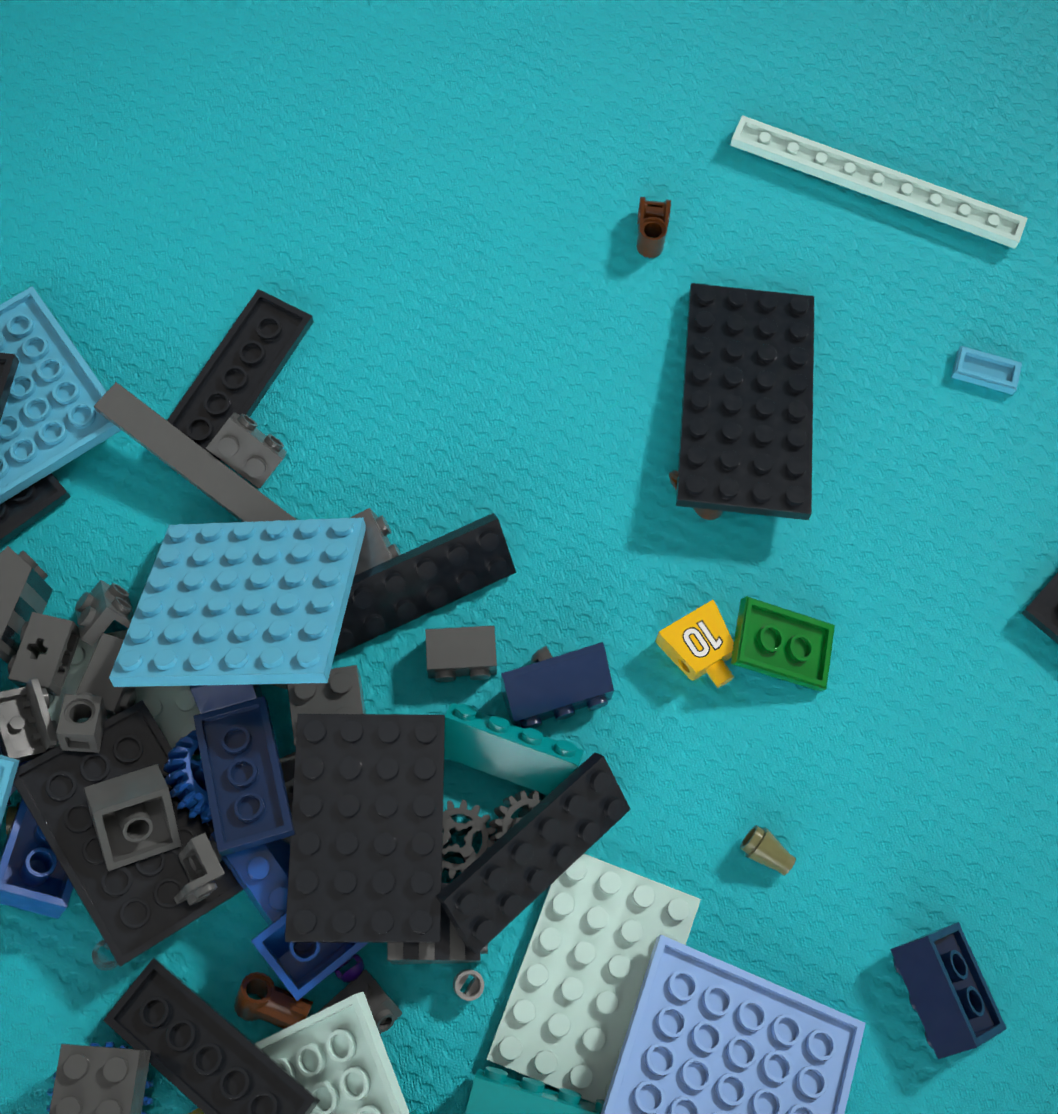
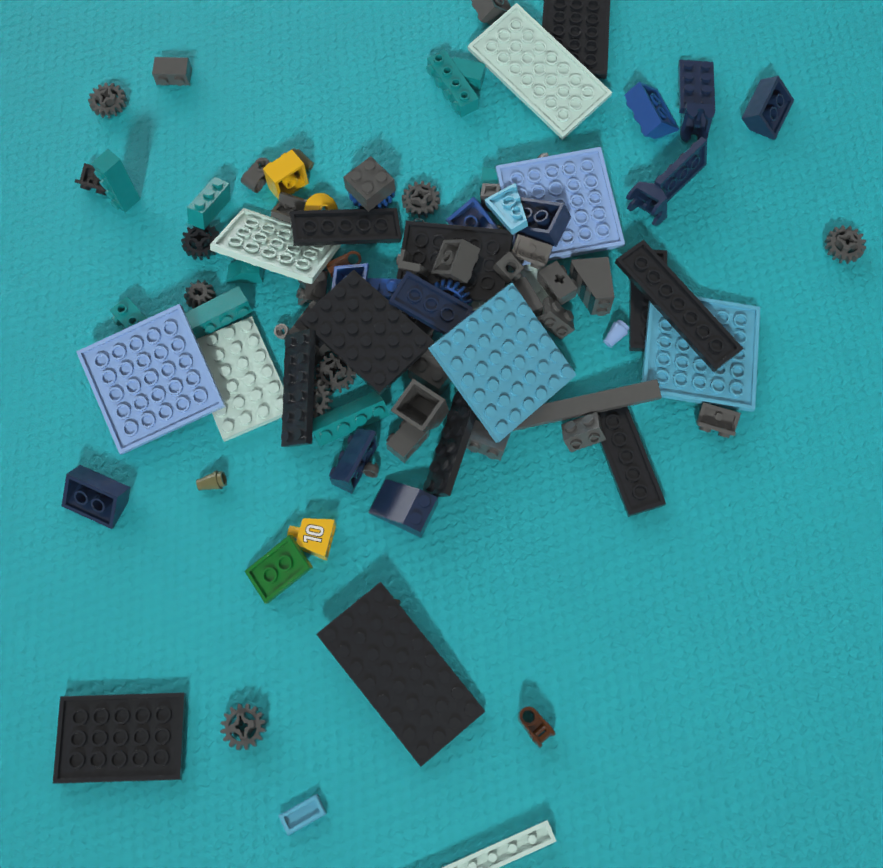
camera: 140 degrees right, 0 degrees up
(44, 1007) = (420, 199): none -> dark grey gear
(57, 528) = (616, 333): none -> light blue cone
(86, 316) = (718, 419): none -> dark grey bracket
(411, 654) = (421, 407): none -> dark grey slope
(553, 574) = (404, 506): none -> dark blue slope
(997, 513) = (245, 736): none -> dark grey gear

